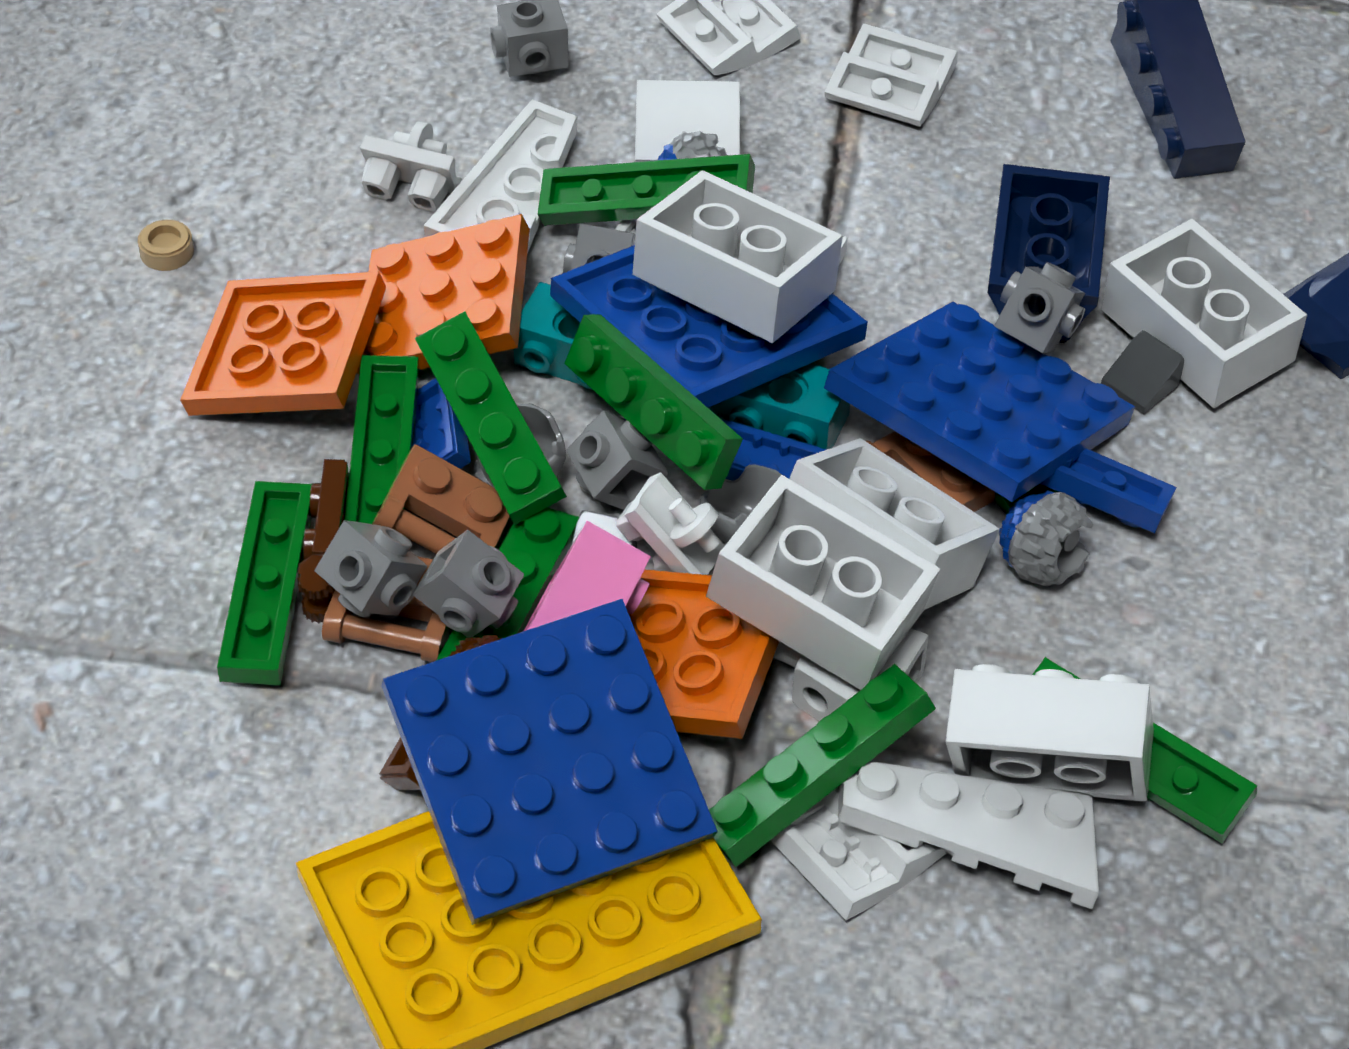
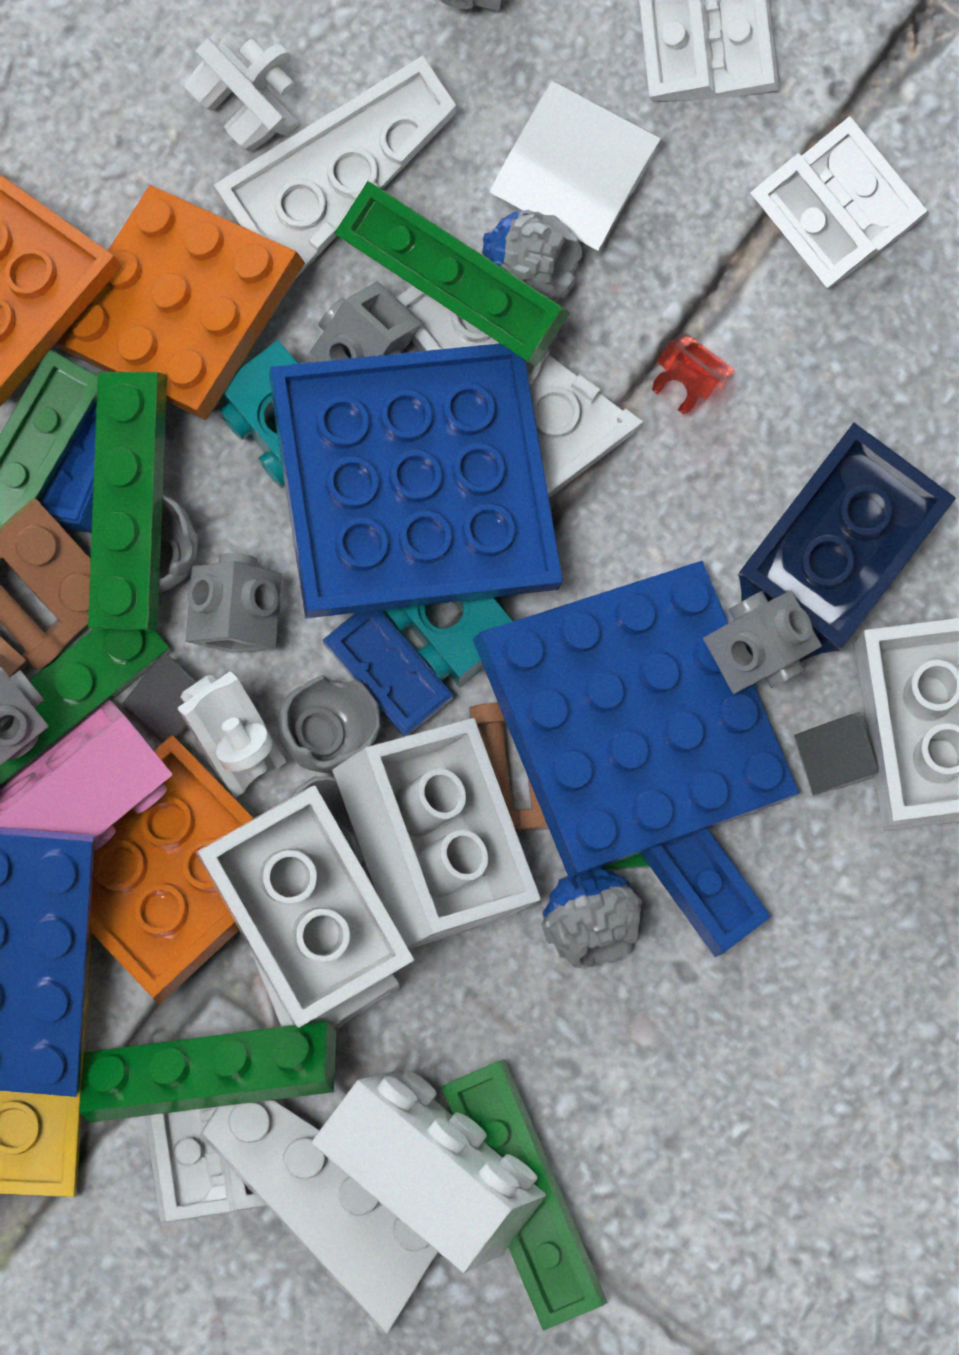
camera: 25 degrees right, 30 degrees up
(653, 402) = (279, 584): green plate -> none
(737, 255) = (455, 455): white brick -> none
(861, 193) = (695, 368): none -> clear red tile

